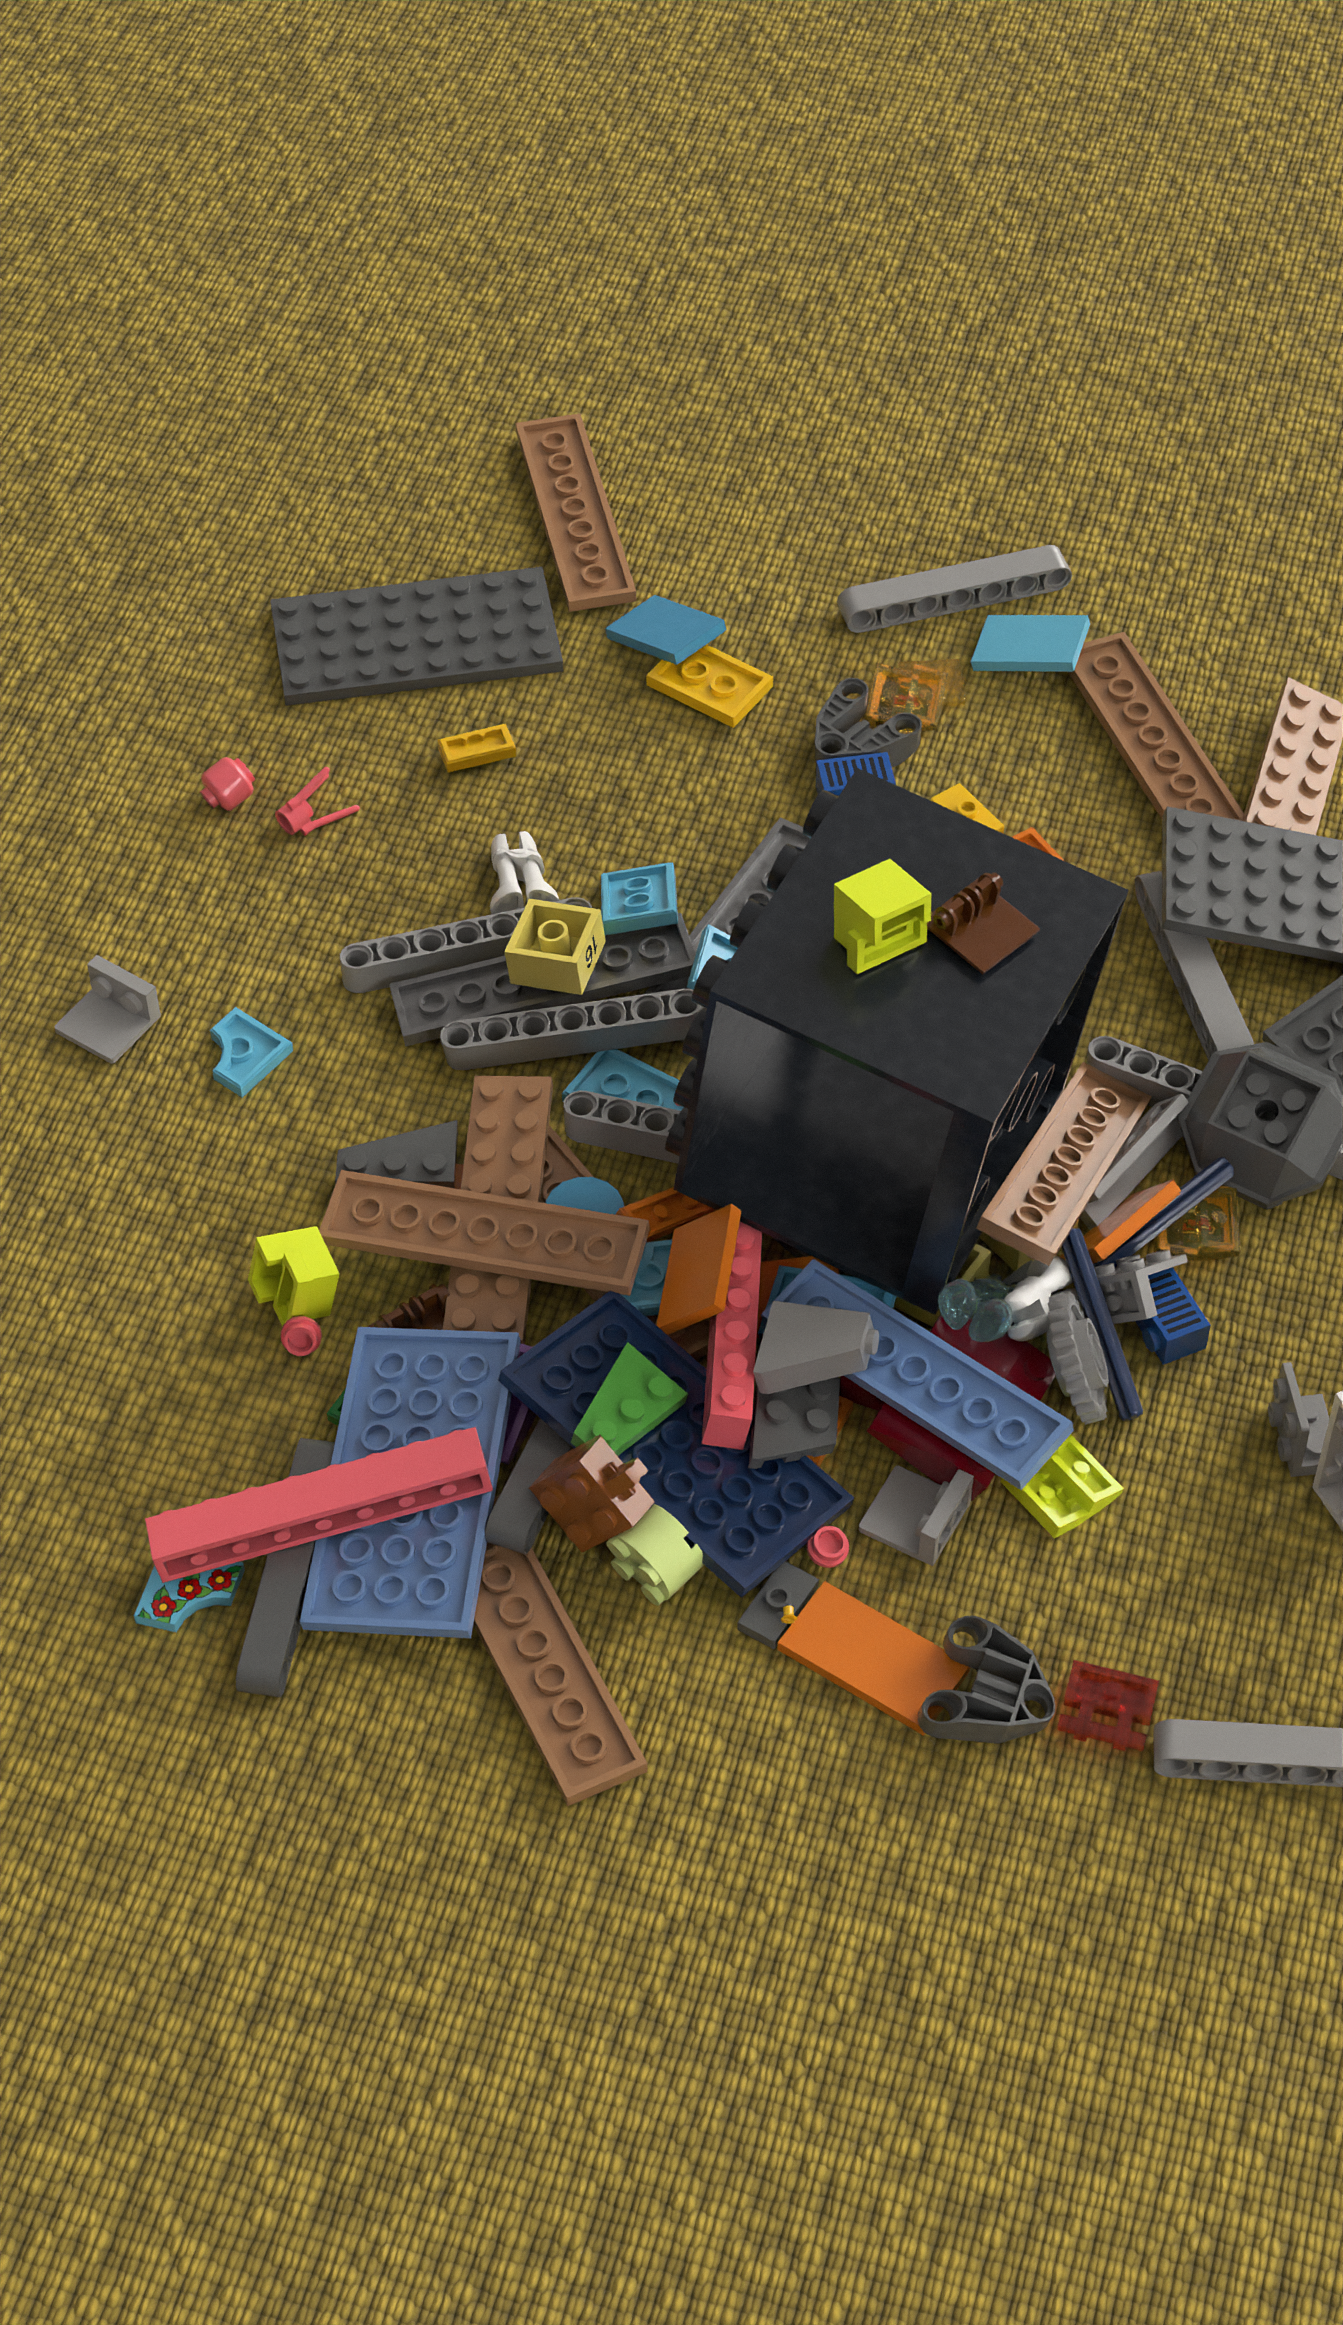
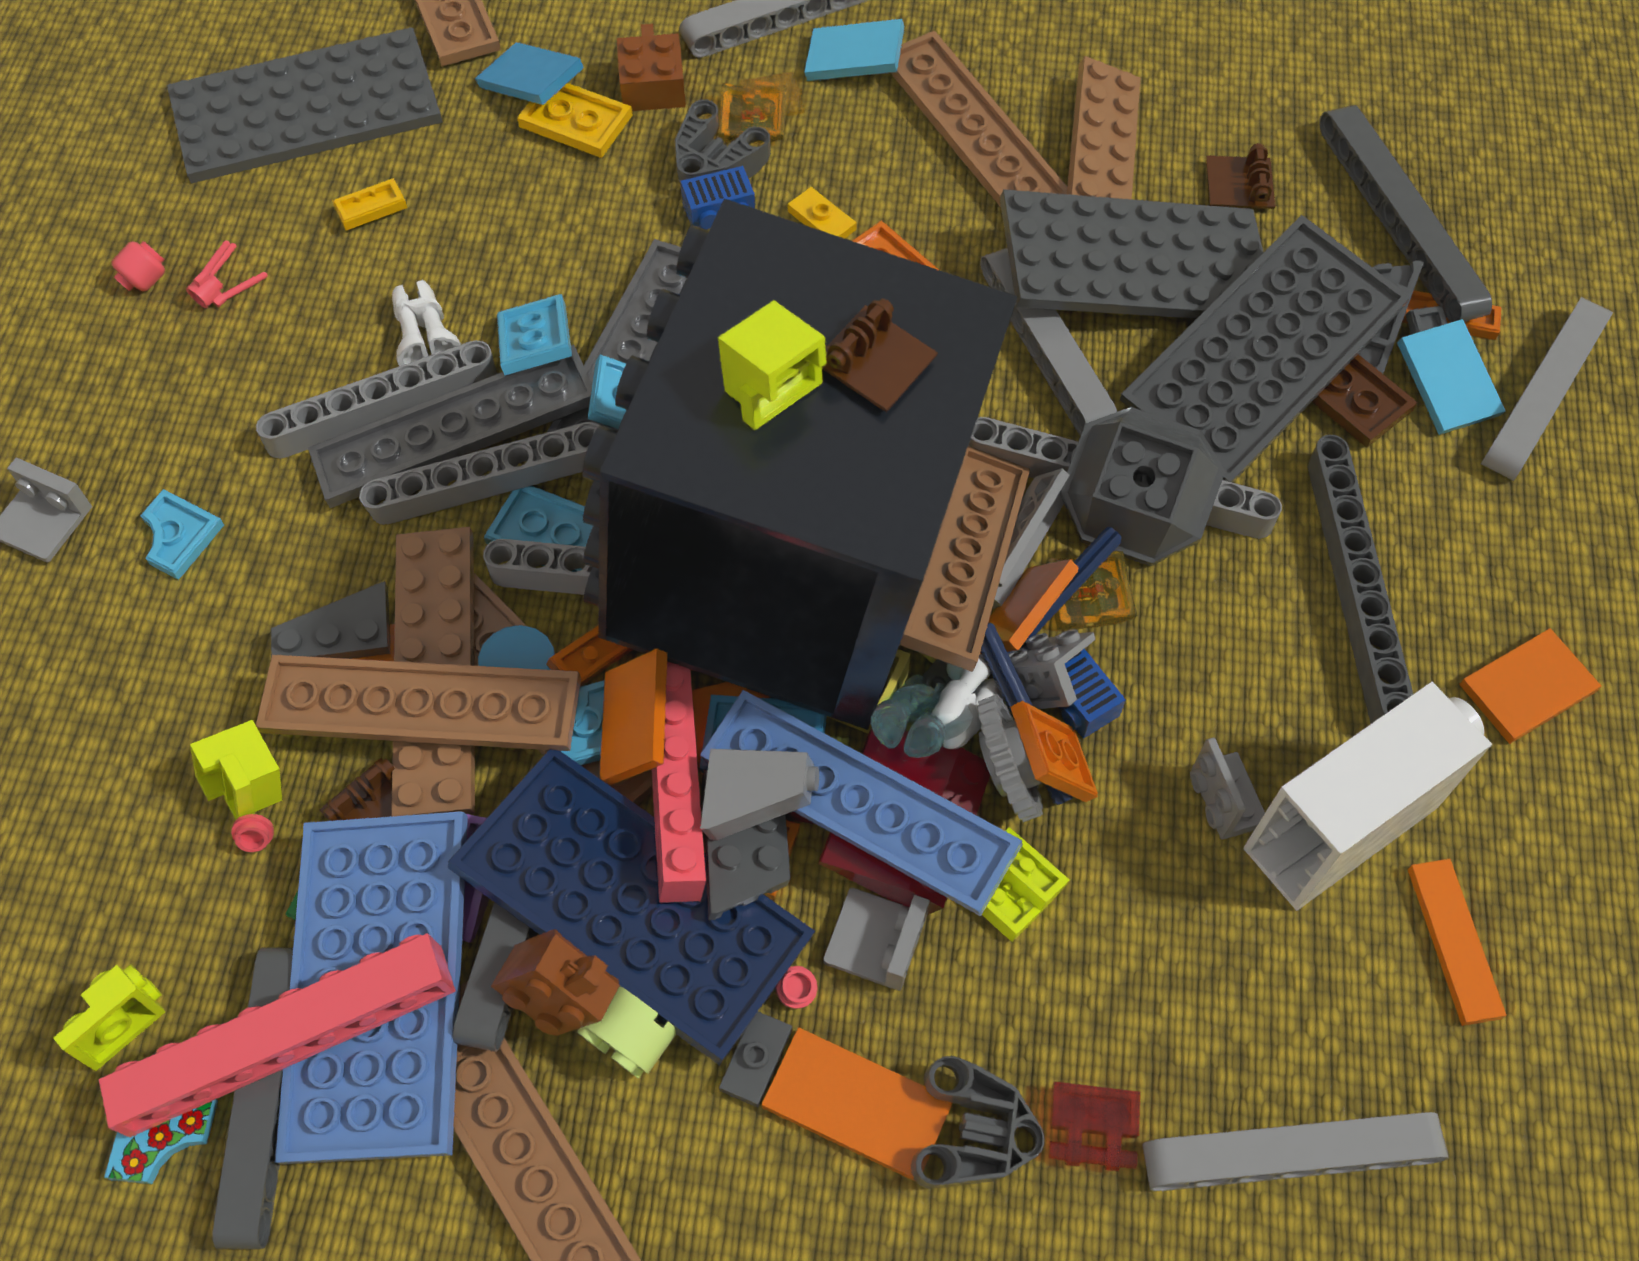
camera: 10 degrees left, 10 degrees up
(157, 1476) = (119, 1011): none -> neon yellow plate
(555, 946) = (457, 395): light yellow brick -> none
(629, 1402) = (580, 877): bright green wing -> none
(789, 1617) = (768, 1074): yellow piece -> none
(800, 641) = (651, 70): none -> dark orange hinge
(1125, 1360) = (1054, 752): none -> orange tile

